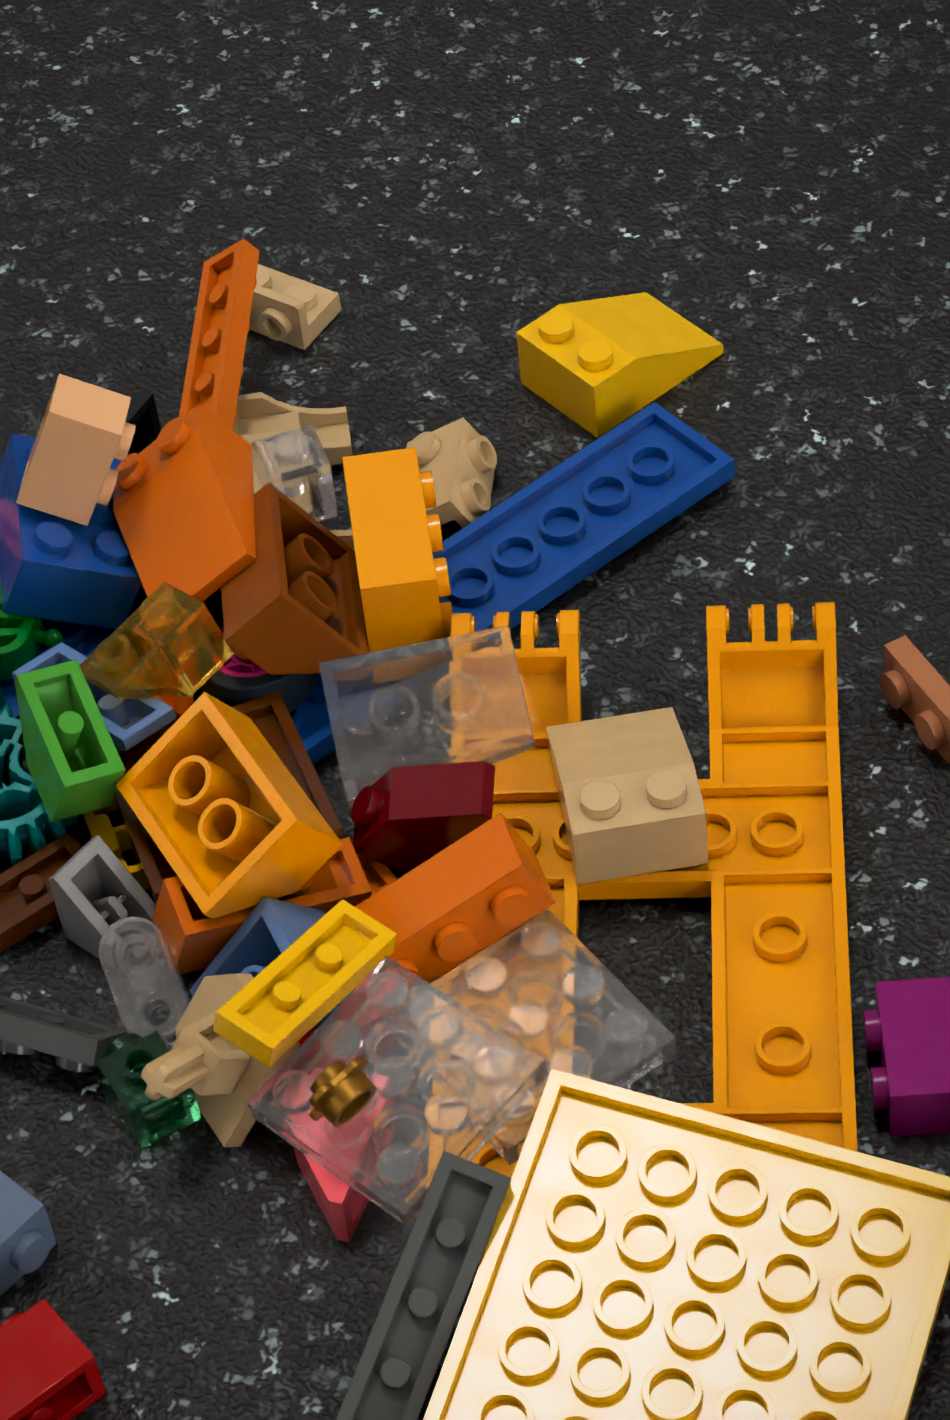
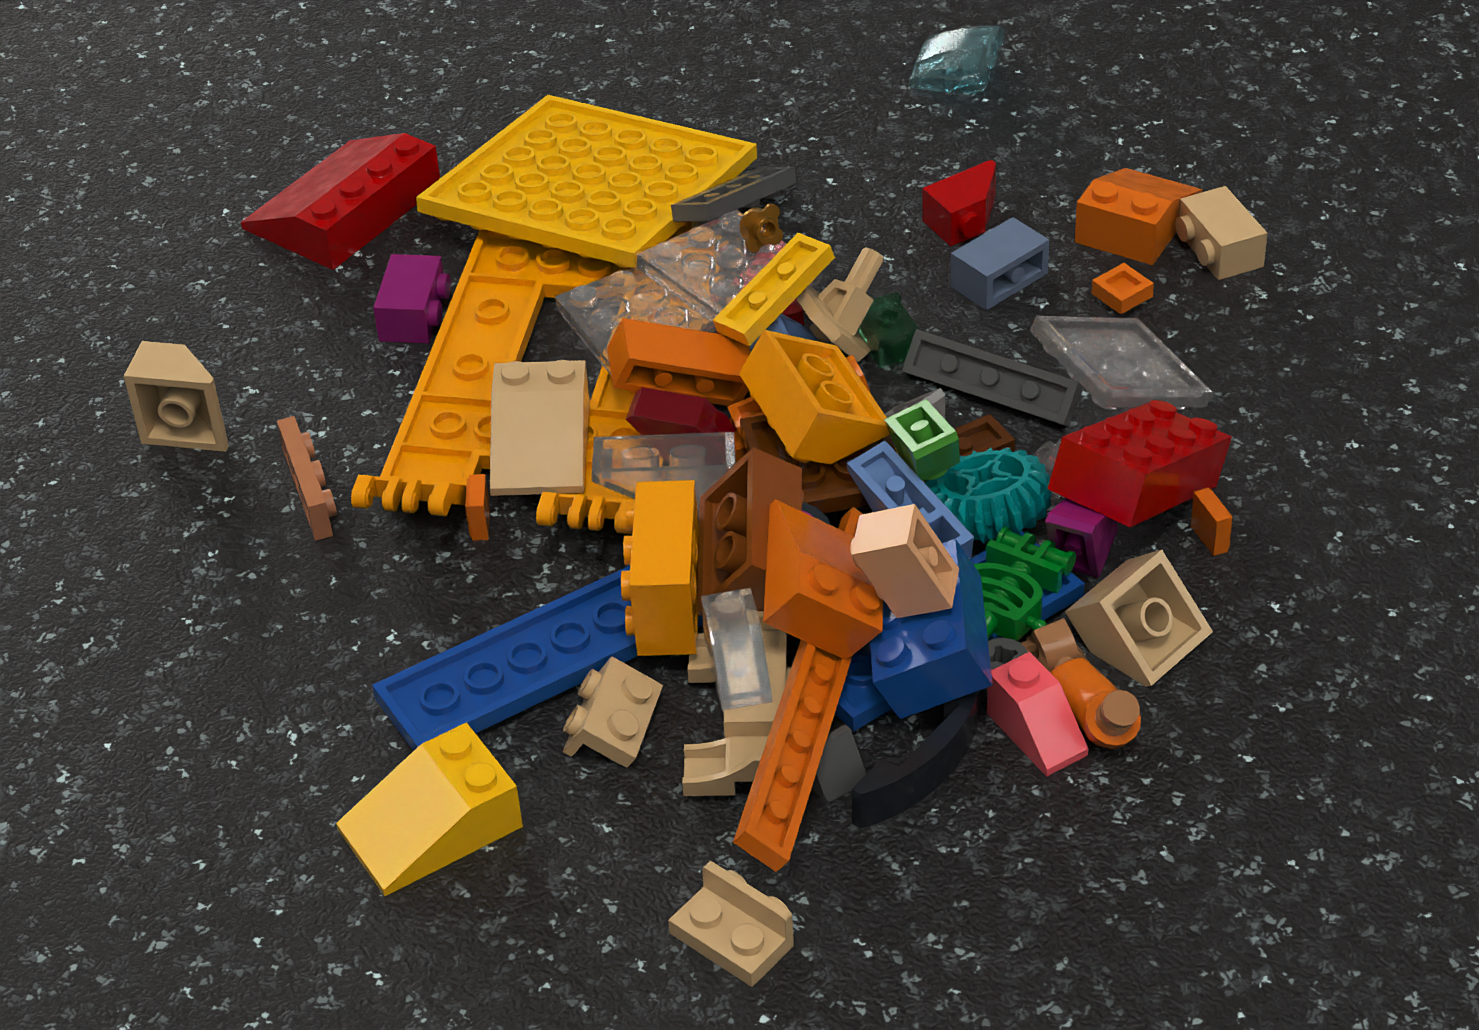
camera: 175 degrees left, 5 degrees down
(146, 985) = (887, 378): clear plate -> none
(159, 650) = (857, 488): clear yellow slope -> none
(688, 706) = (477, 507): none -> orange tile

